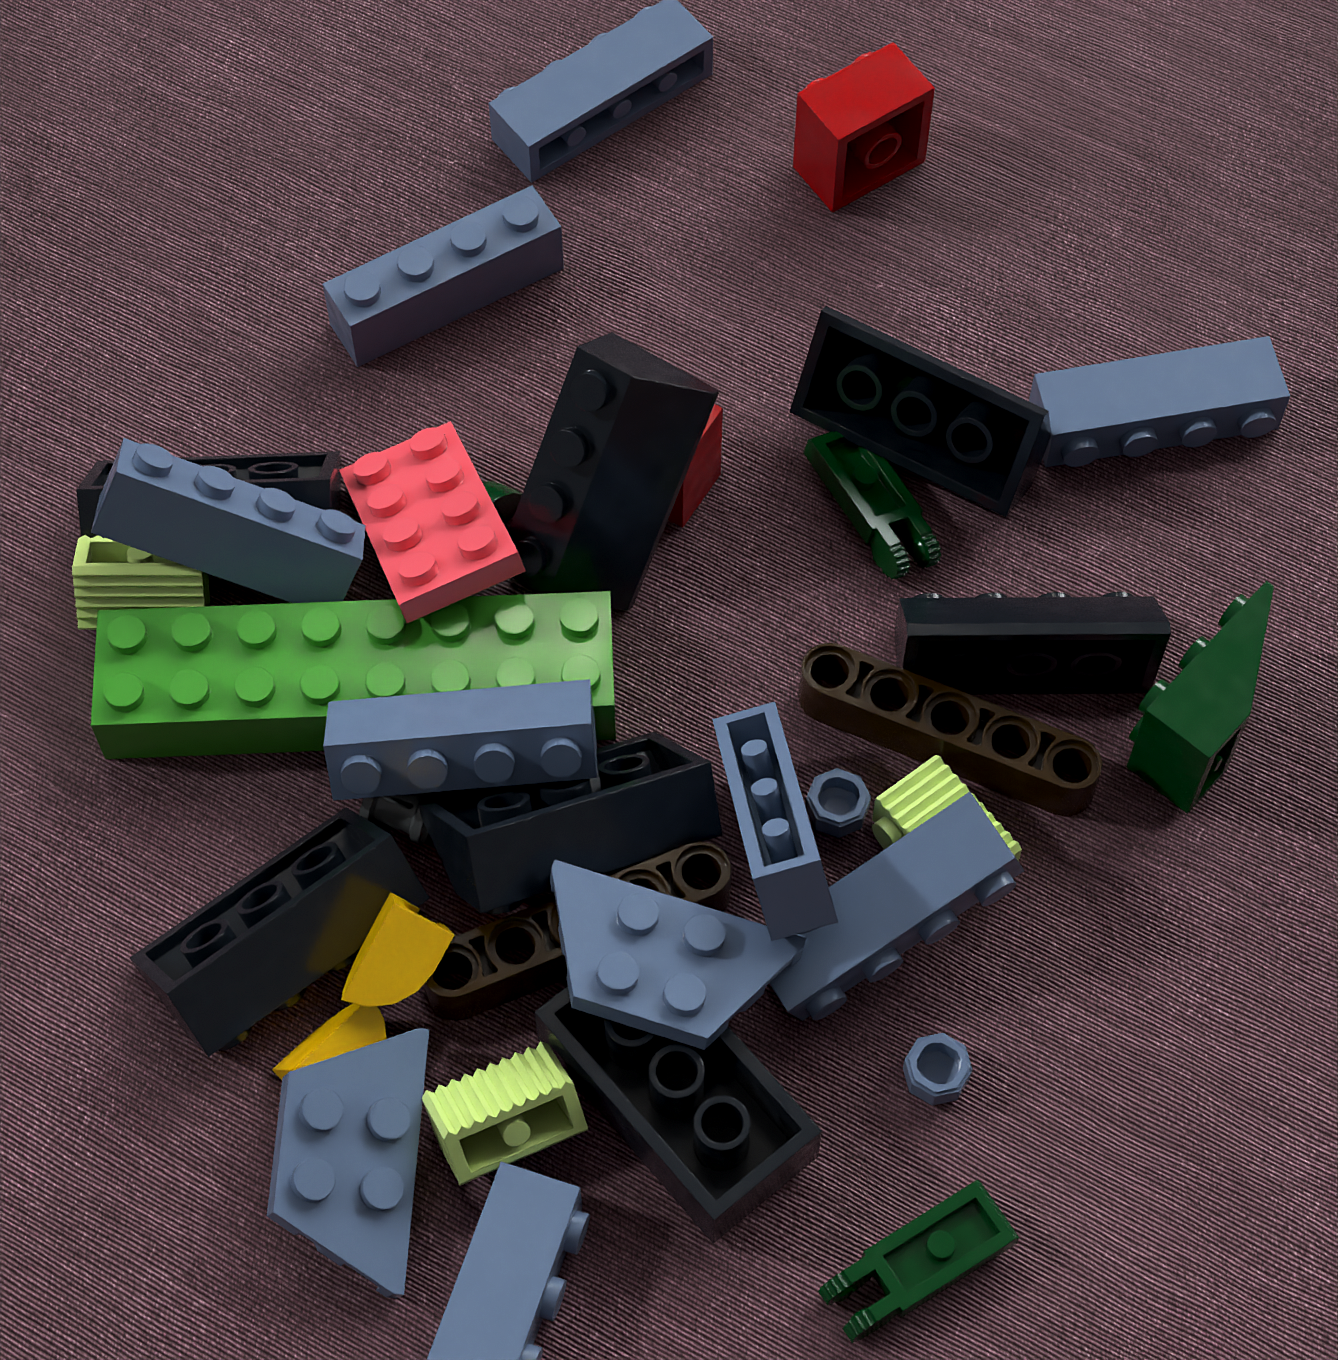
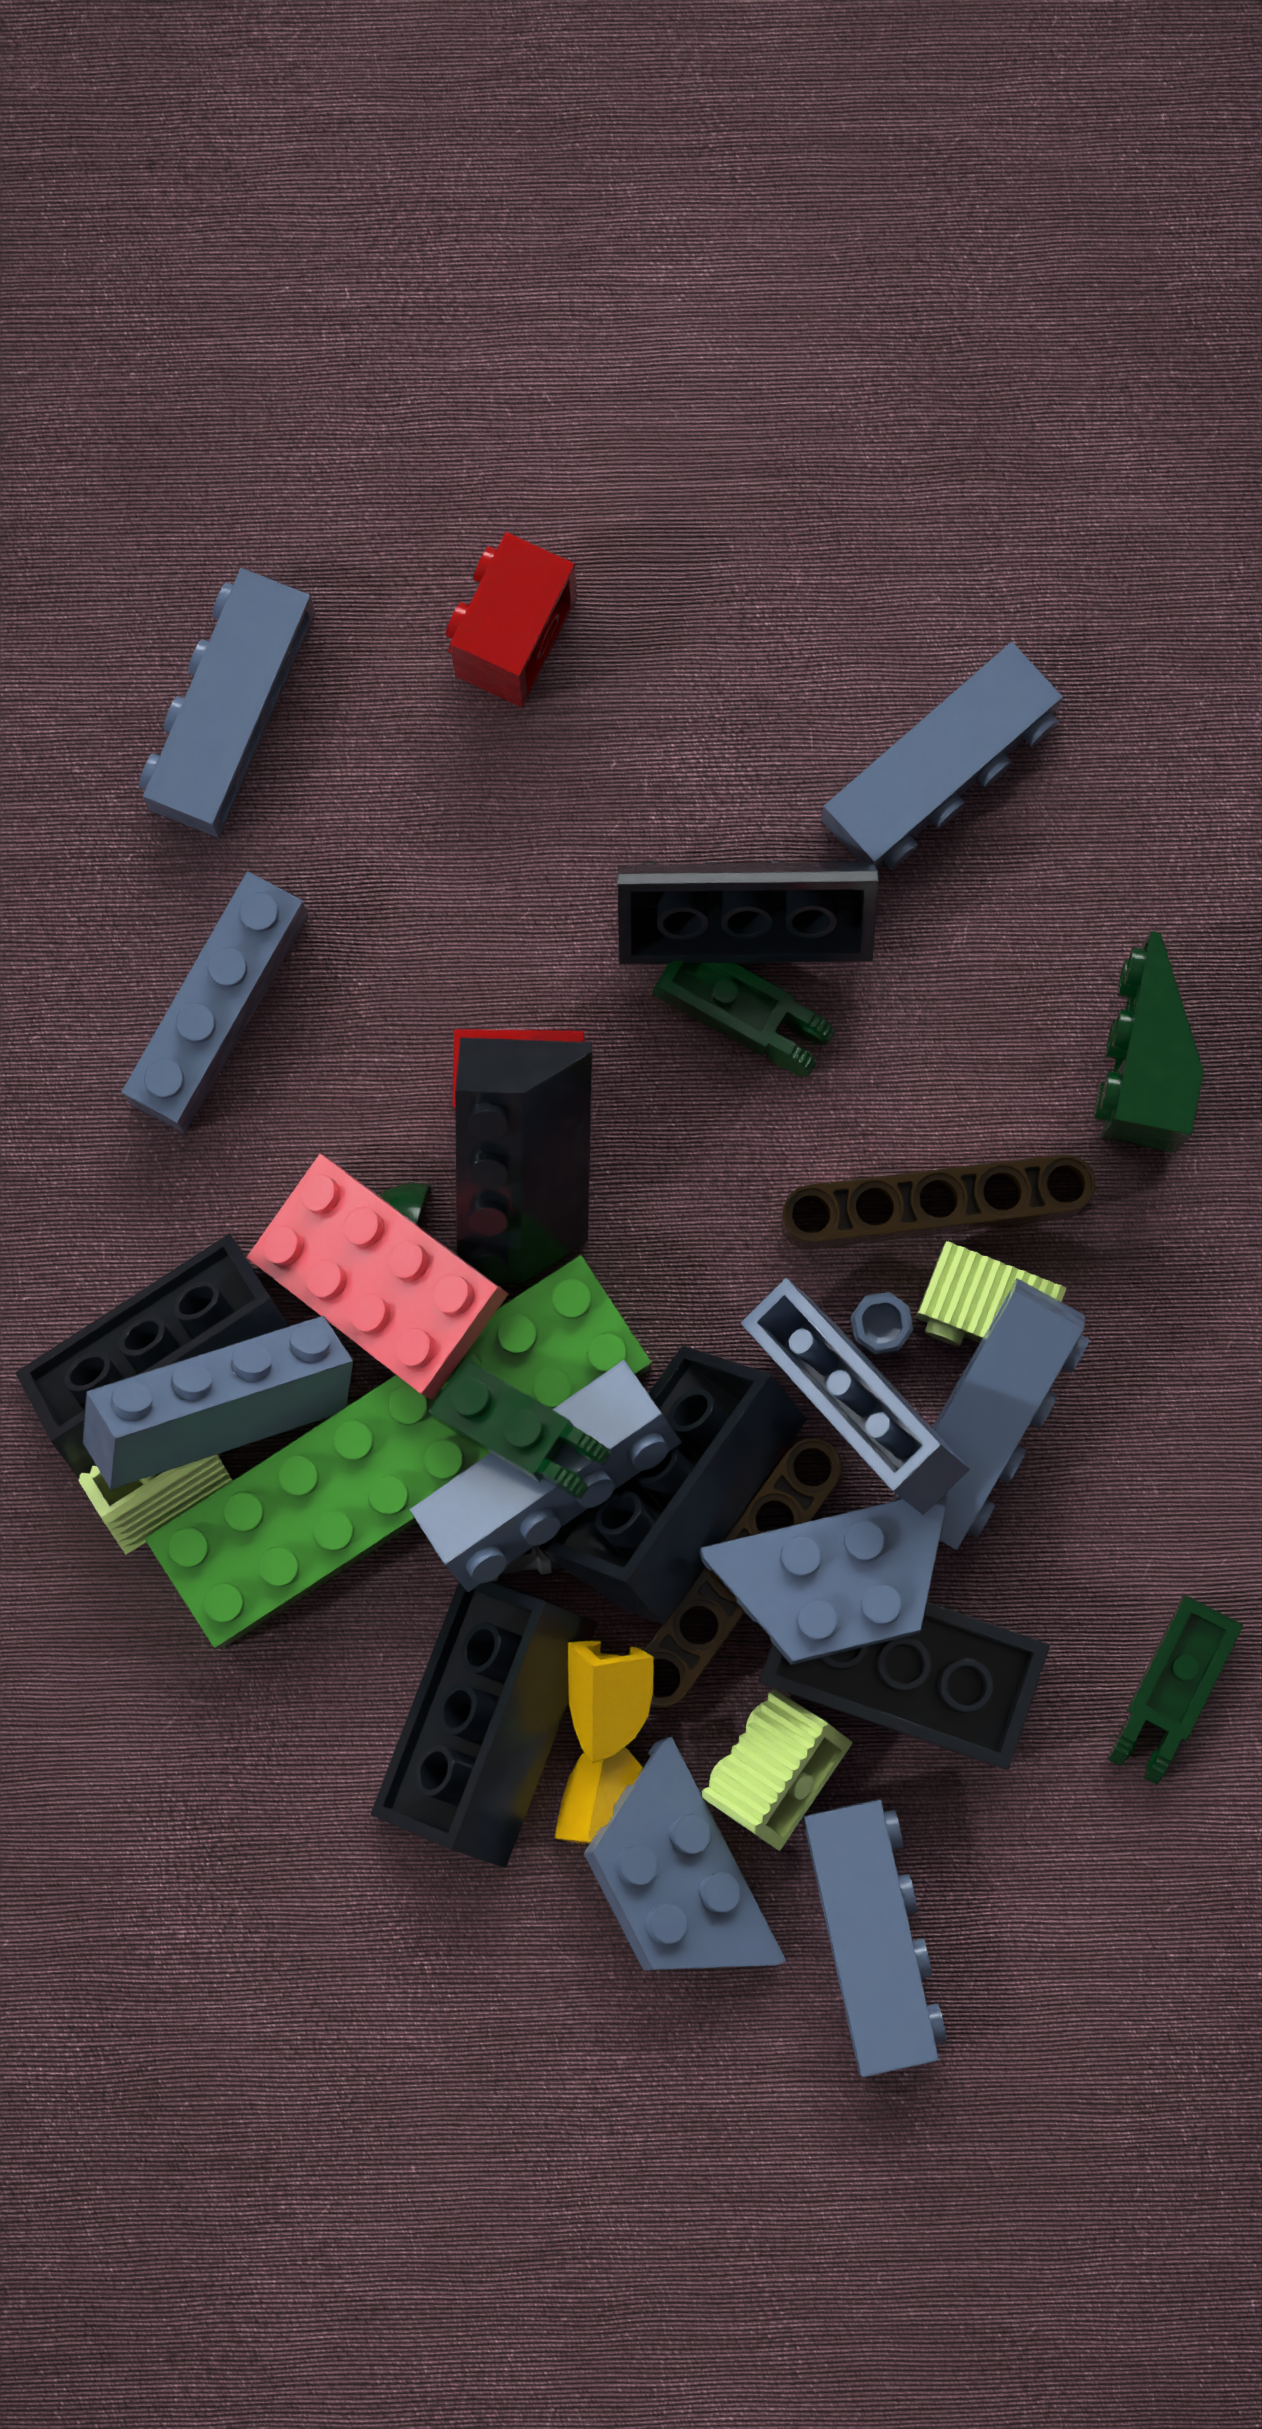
camera: 30 degrees left, 20 degrees up
(459, 672) = (514, 1427): none -> dark green hinge
(937, 1069) = (1098, 1516): sand blue tile -> none
(1033, 642) = (961, 1077): black slope -> none

